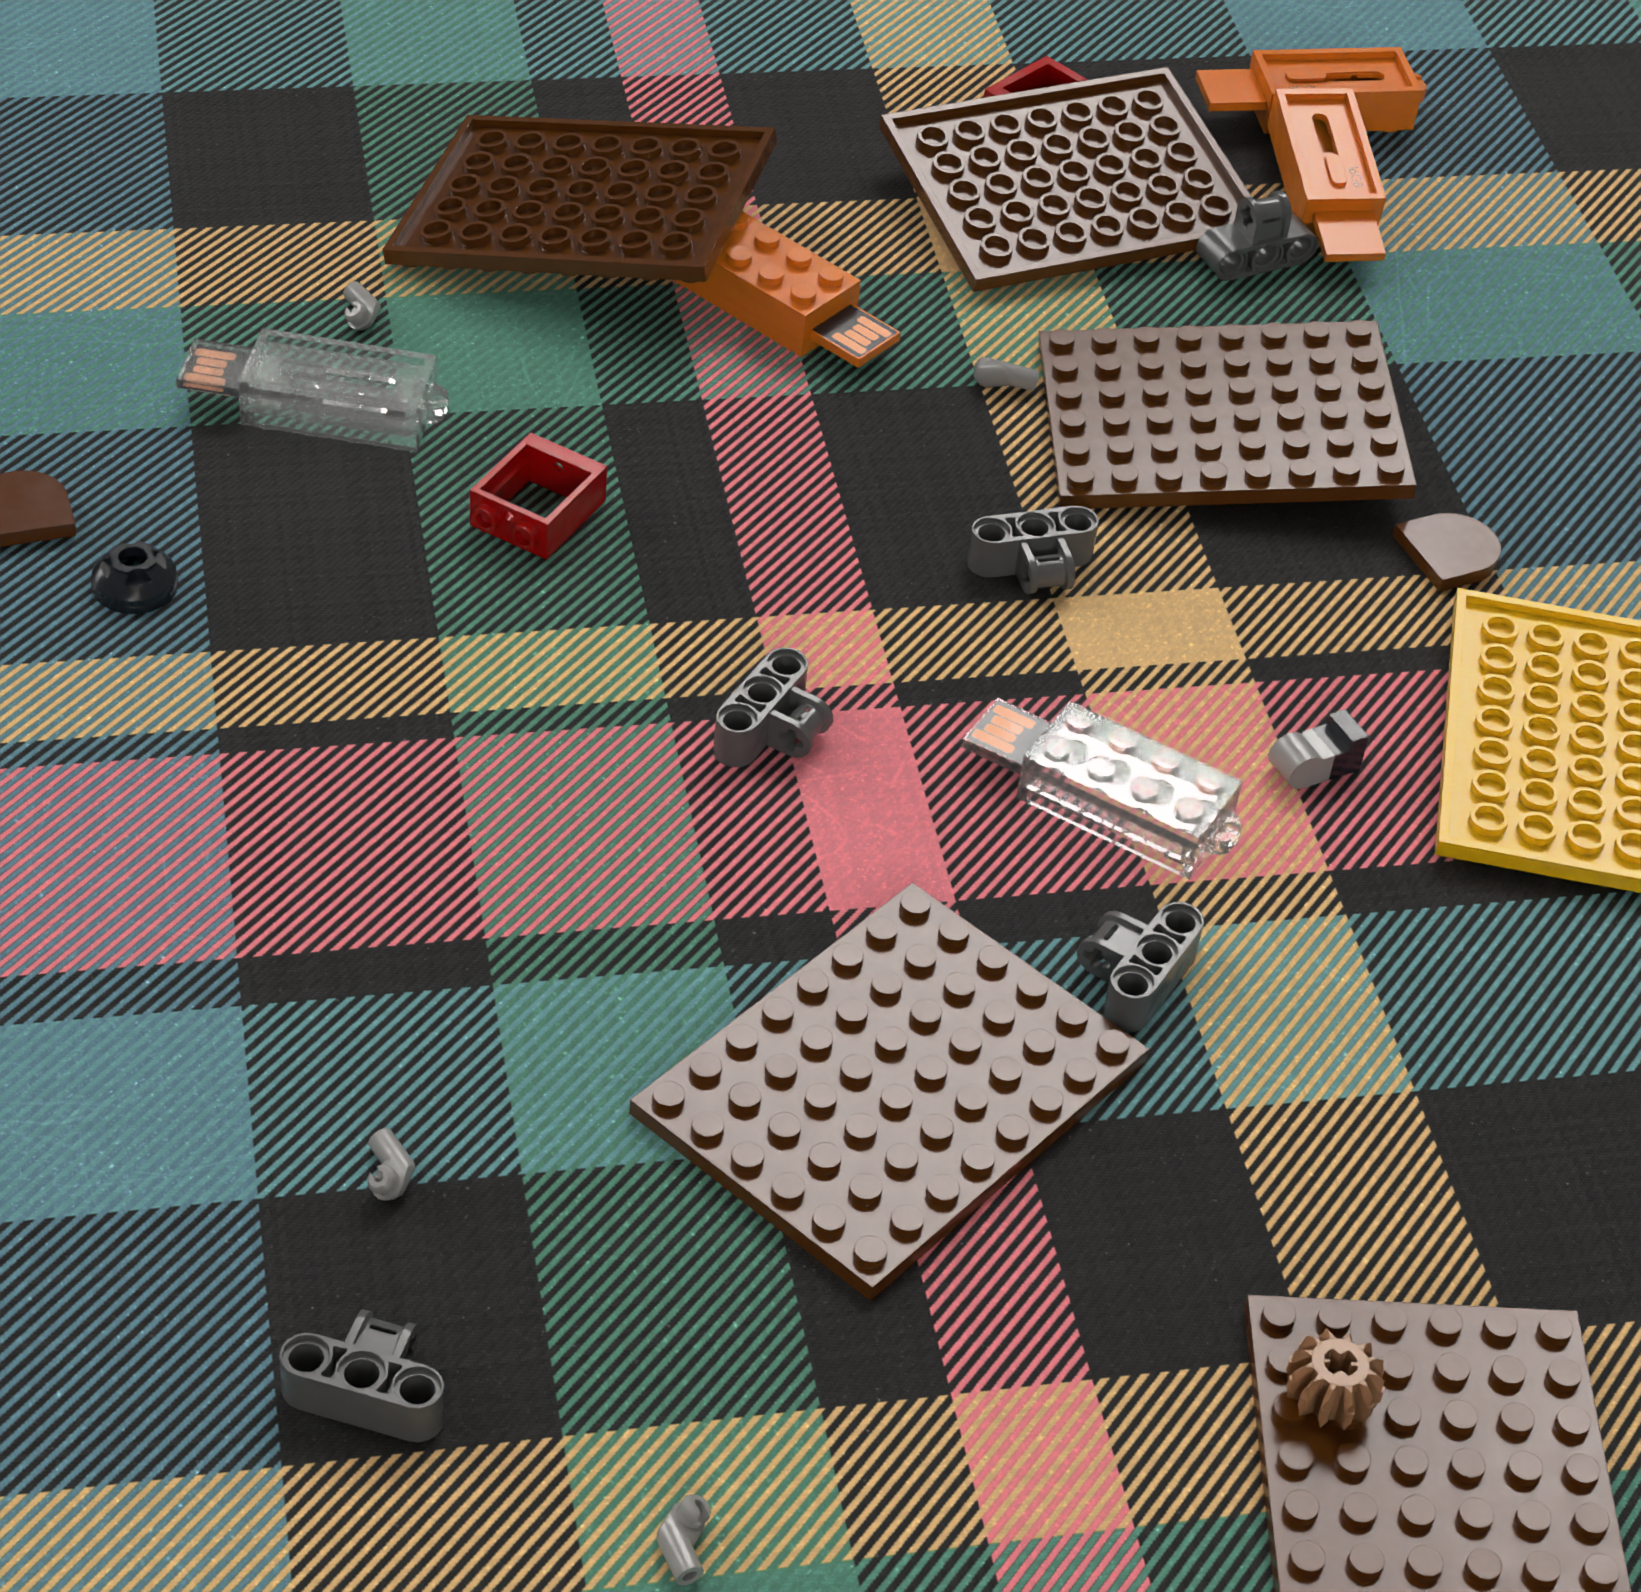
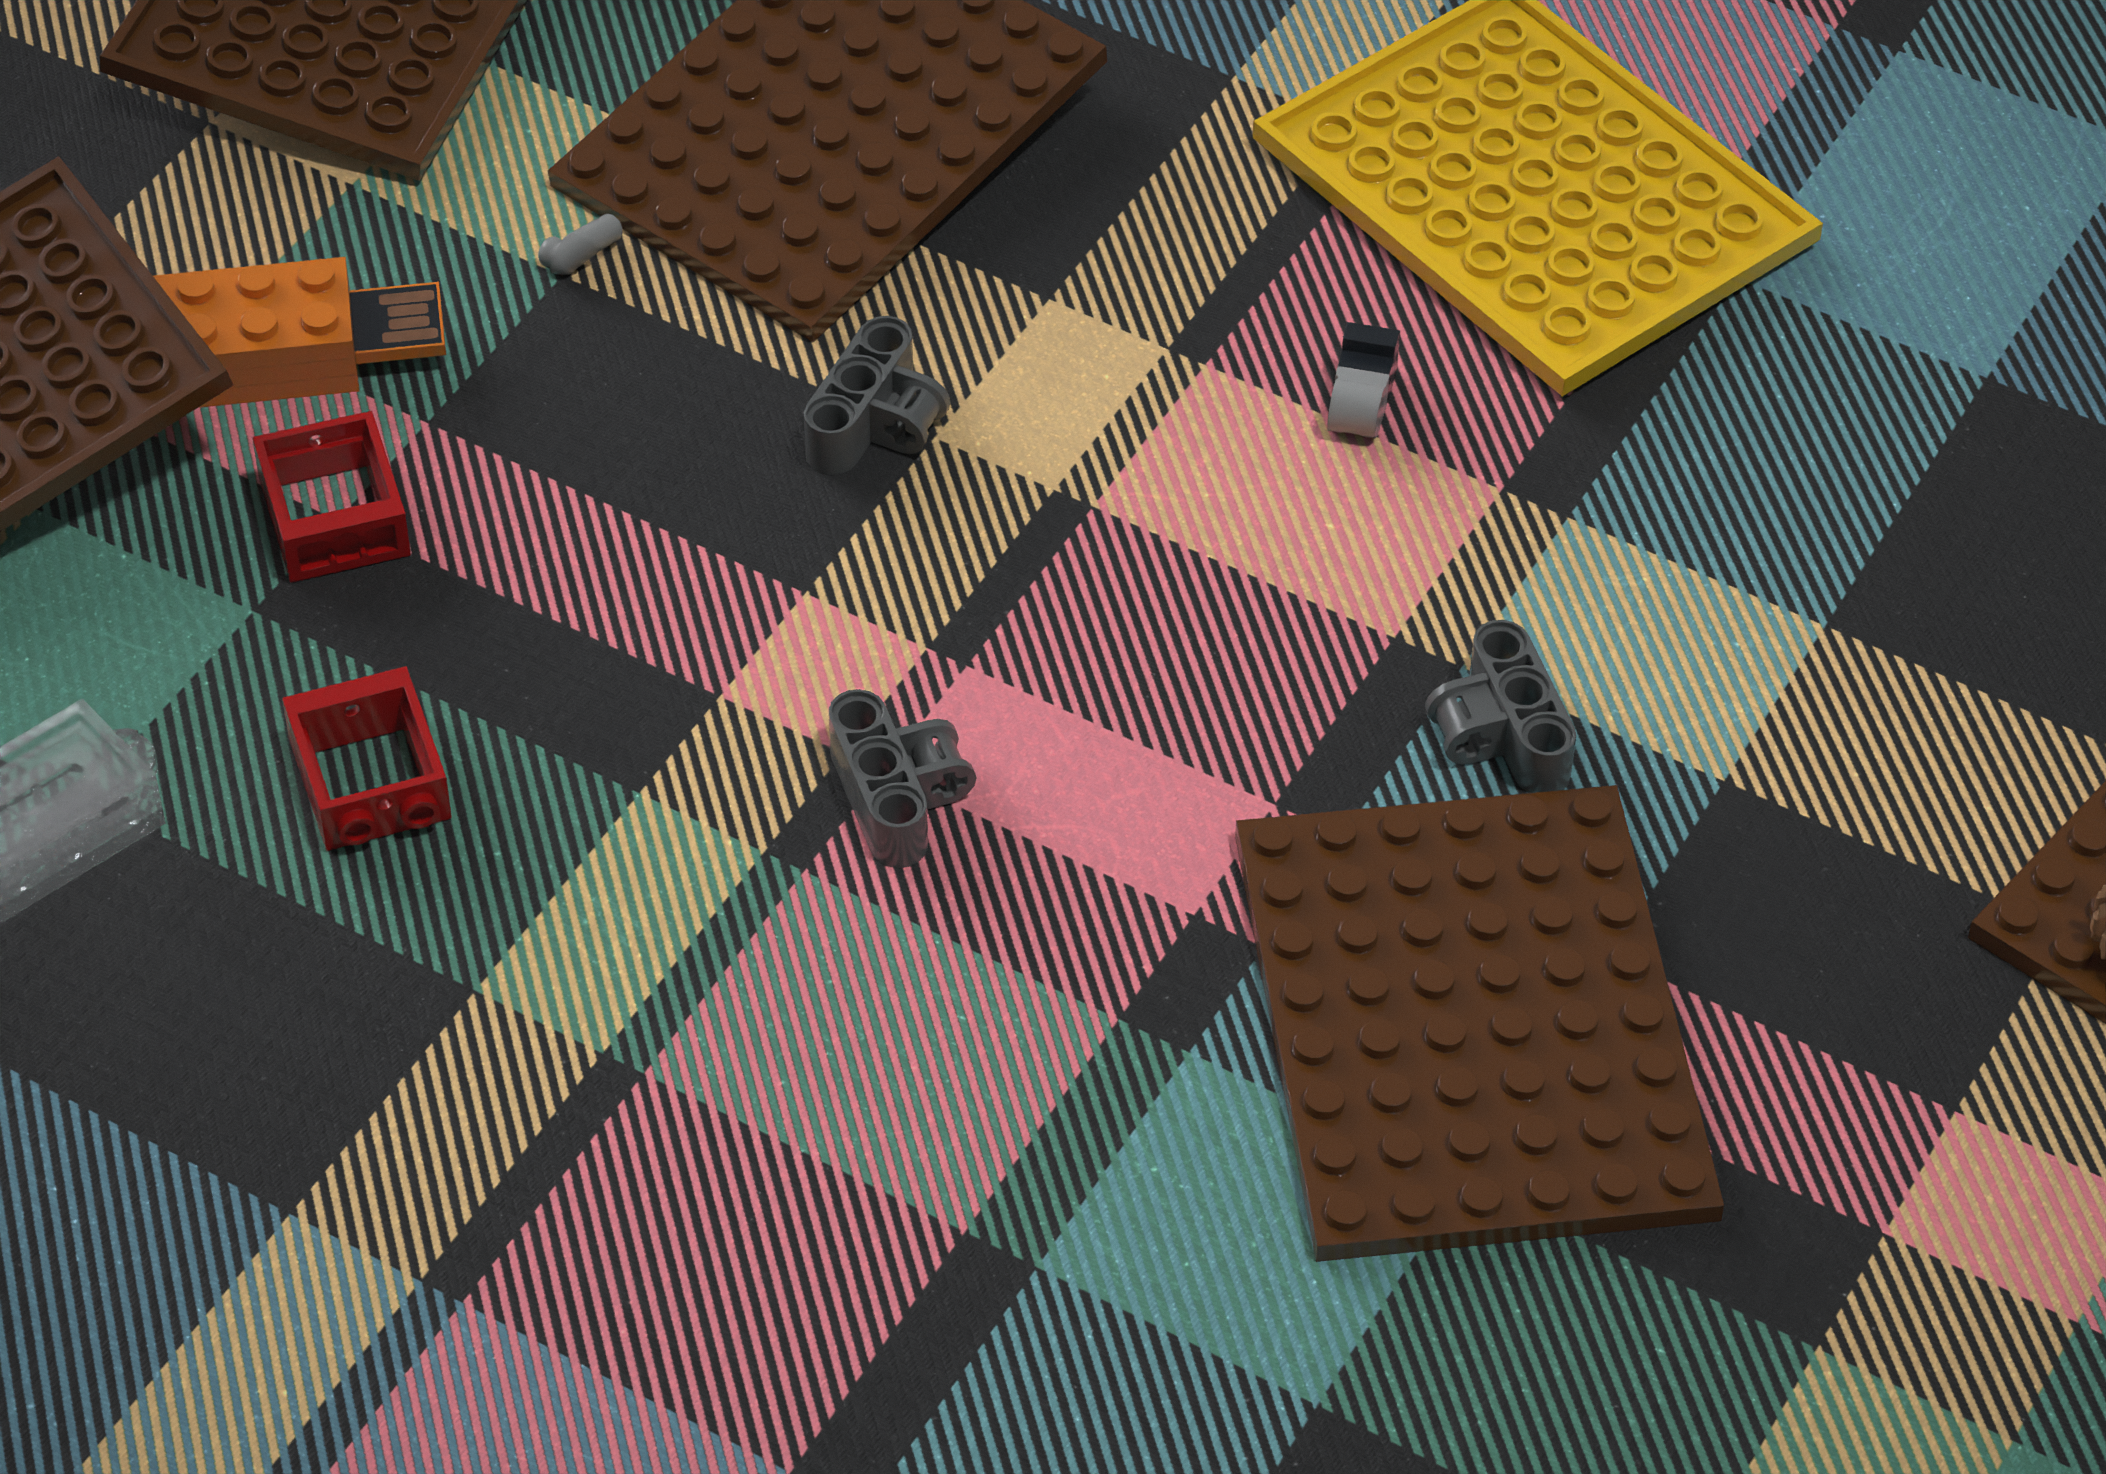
camera: 45 degrees left, 5 degrees up
(137, 587) = (110, 1234): black piece -> none
(689, 405) = (343, 536): none -> red window
(1114, 783) = (1256, 568): clear piece -> none
(1450, 548) = (1181, 87): tile -> none

